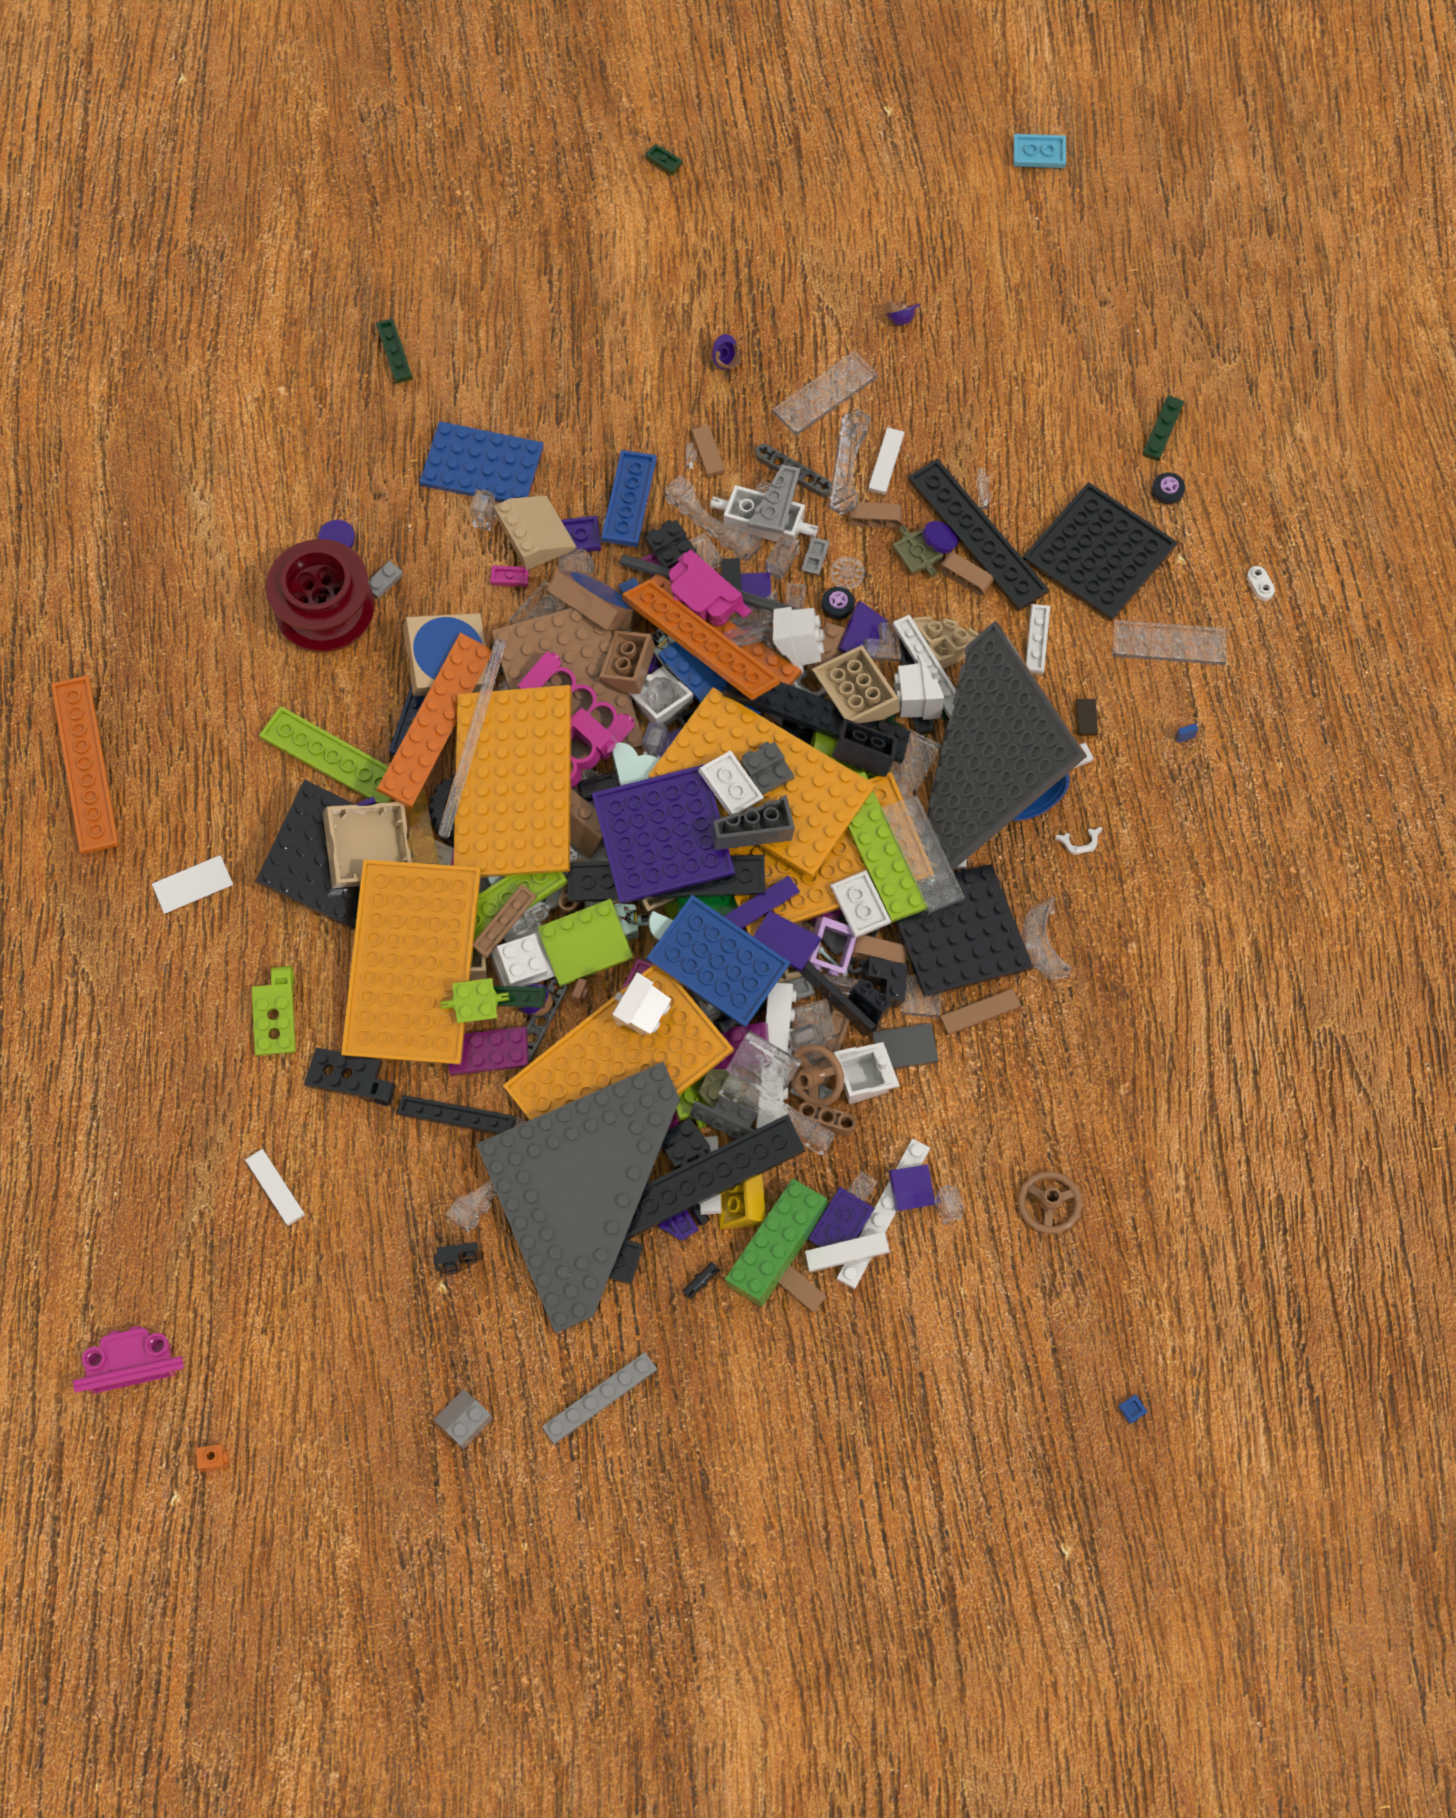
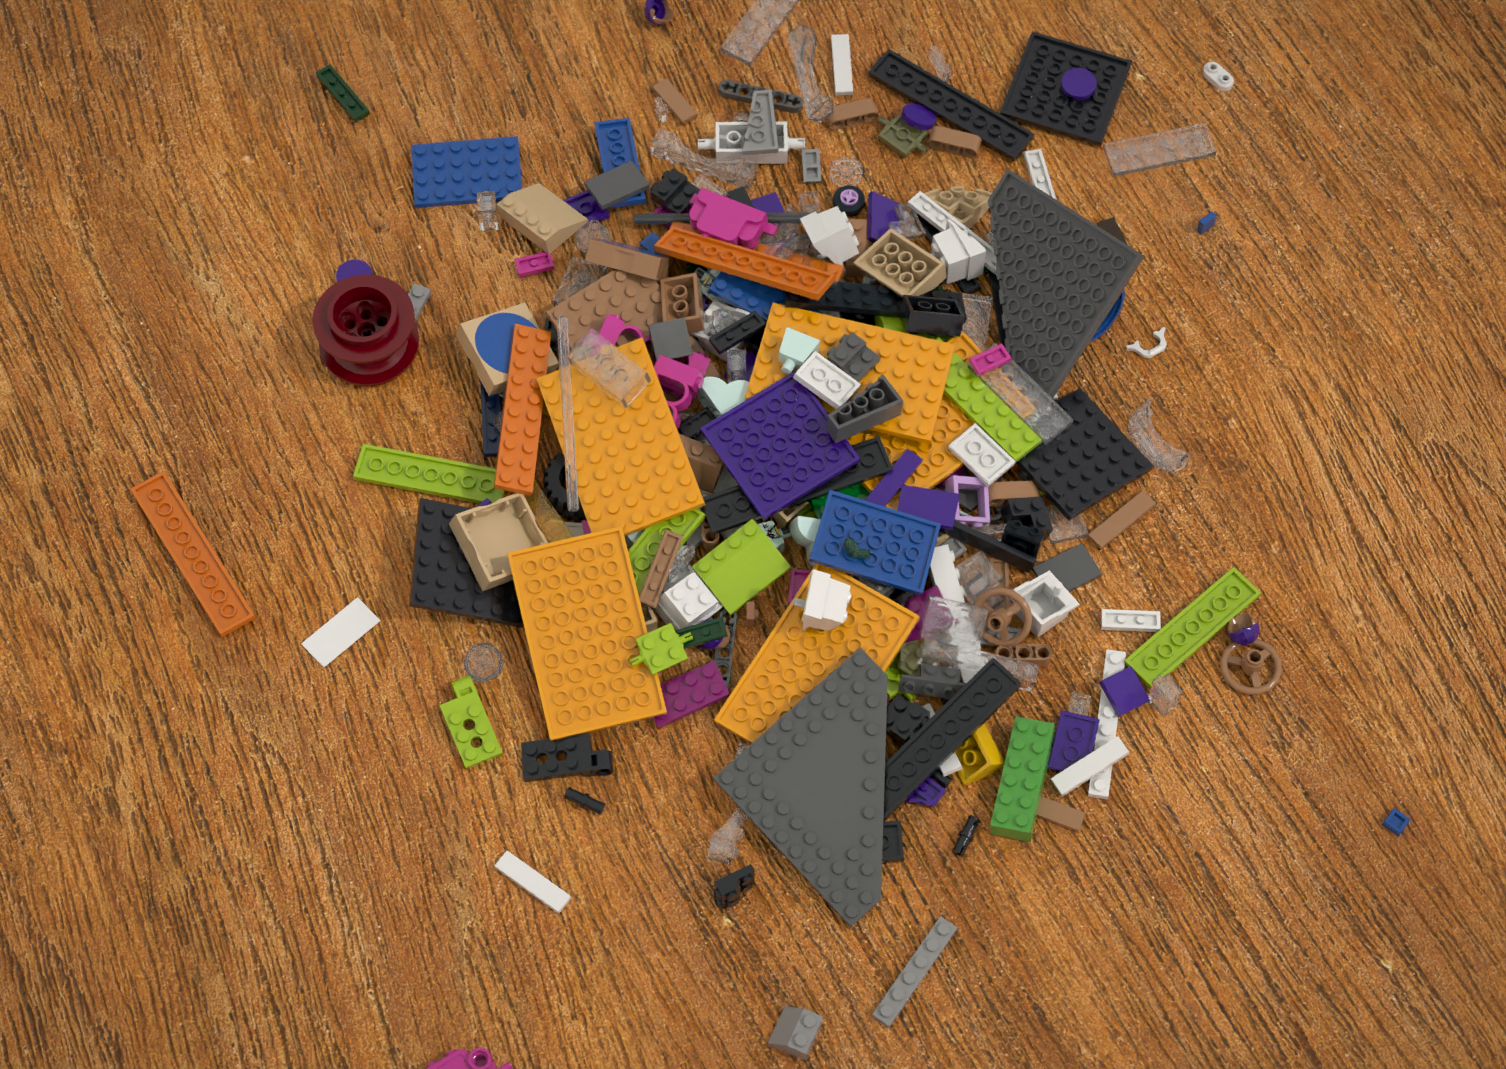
camera: 20 degrees left, 5 degrees down
(307, 957) = (483, 662): none -> clear cylinder
(352, 1124) = (584, 800): none -> black pin
(455, 1115) = (679, 761): black tile -> none
(524, 706) = (608, 368): none -> clear brick
(599, 694) = (670, 339): none -> dark grey tile
(615, 520) = (616, 185): none -> dark grey tile
(667, 707) = (737, 332): none -> black plate
(692, 964) = (854, 551): none -> clear green arm
(713, 743) = (796, 349): none -> light aqua torso
(782, 556) = (782, 173): clear brick -> none
(903, 811) = (990, 360): none -> dark pink plate
(947, 1117) = (1130, 620): none -> white plate
(1007, 1144) = (1193, 627): none -> lime plate
(1055, 1163) = (1243, 629): none -> piece
(1113, 550) = (1078, 83): none -> dark purple tile
(1173, 483) = (1104, 17): black wheel -> none

